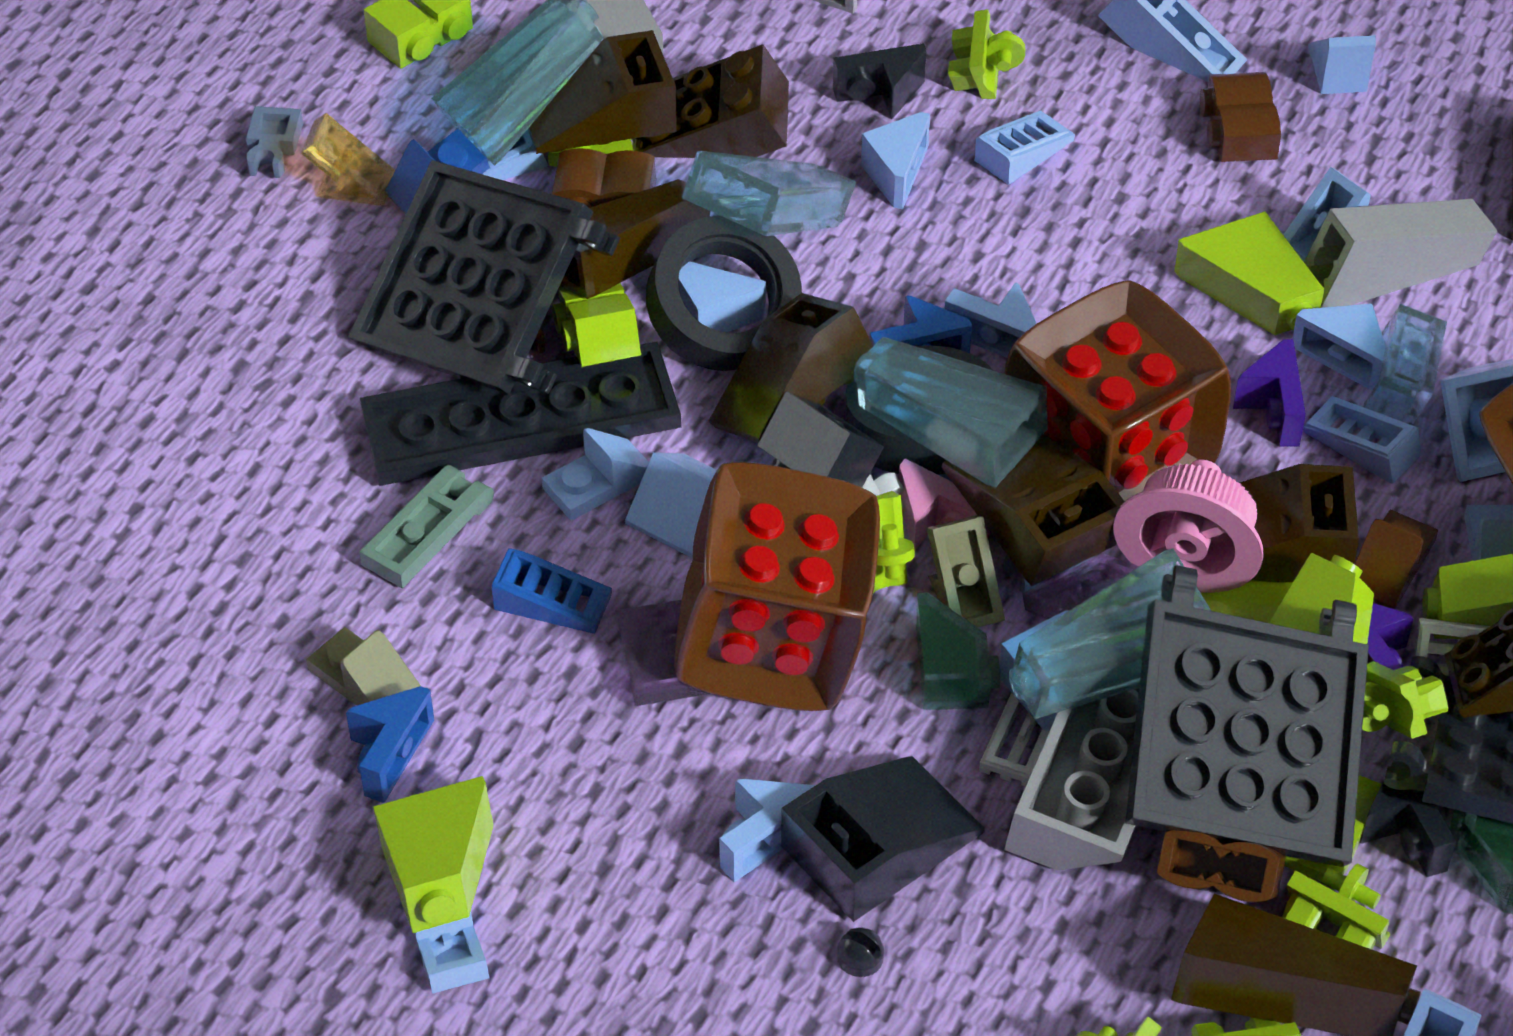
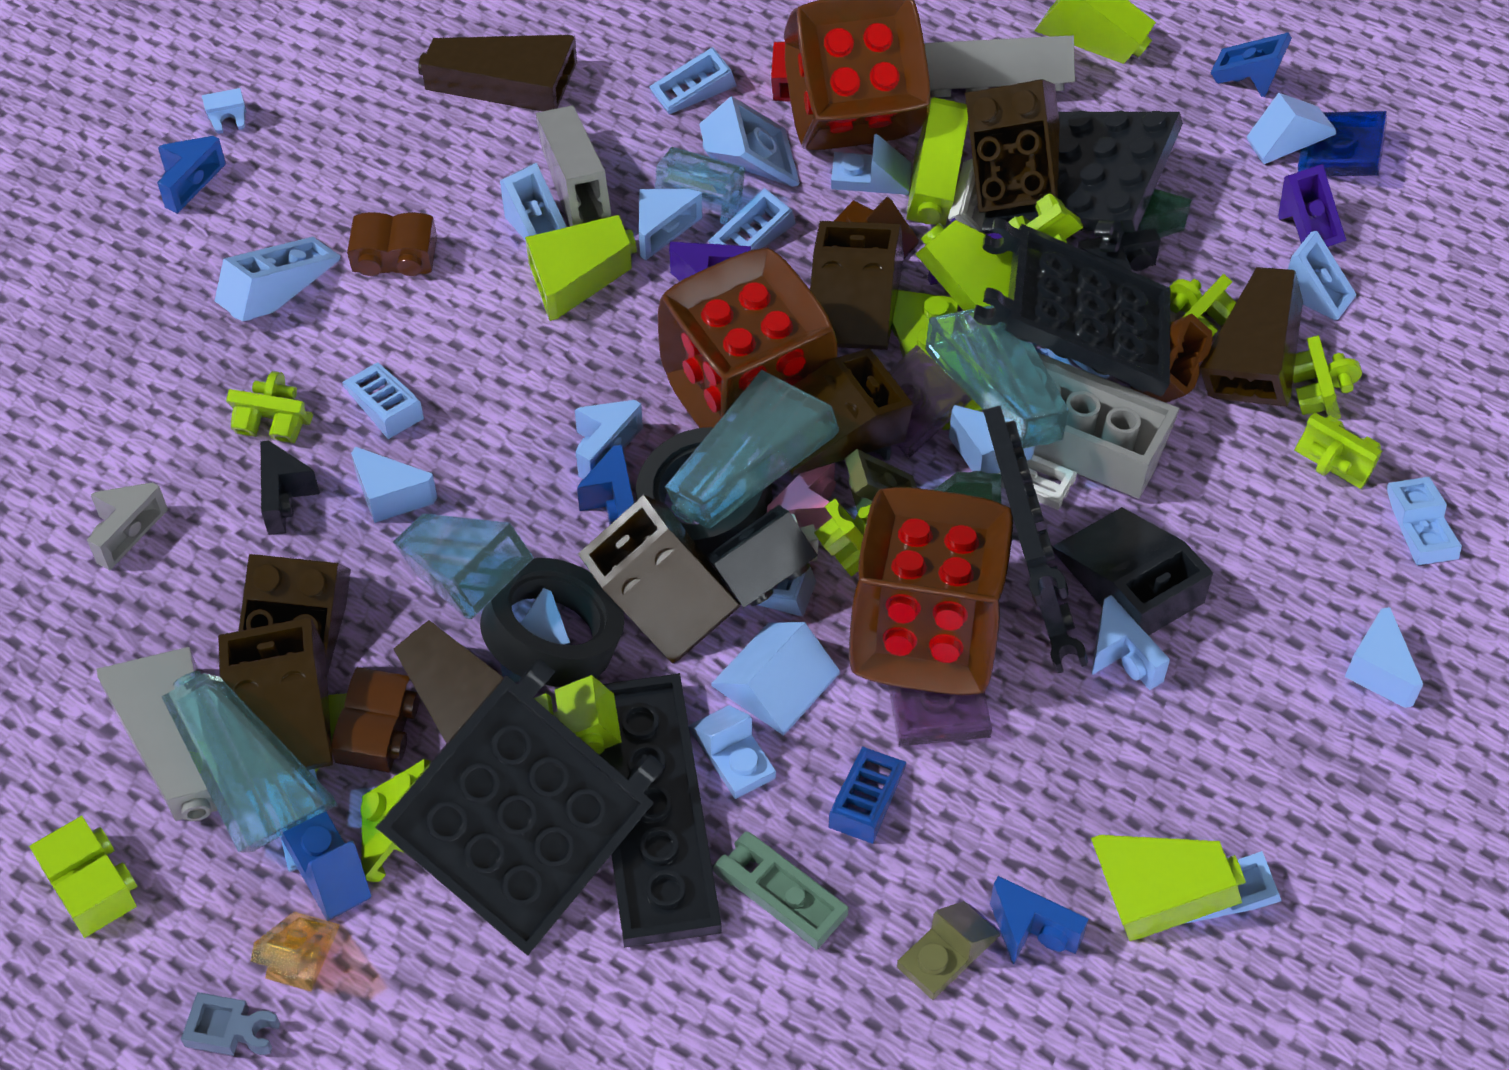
camera: 85 degrees left, 5 degrees up
(856, 958) = (1240, 603): black hinge -> none
(862, 668) = (1036, 545): none -> black plate
(1198, 515) = (881, 312): bright pink piece -> none
(1343, 63) = (339, 171): light blue slope -> none

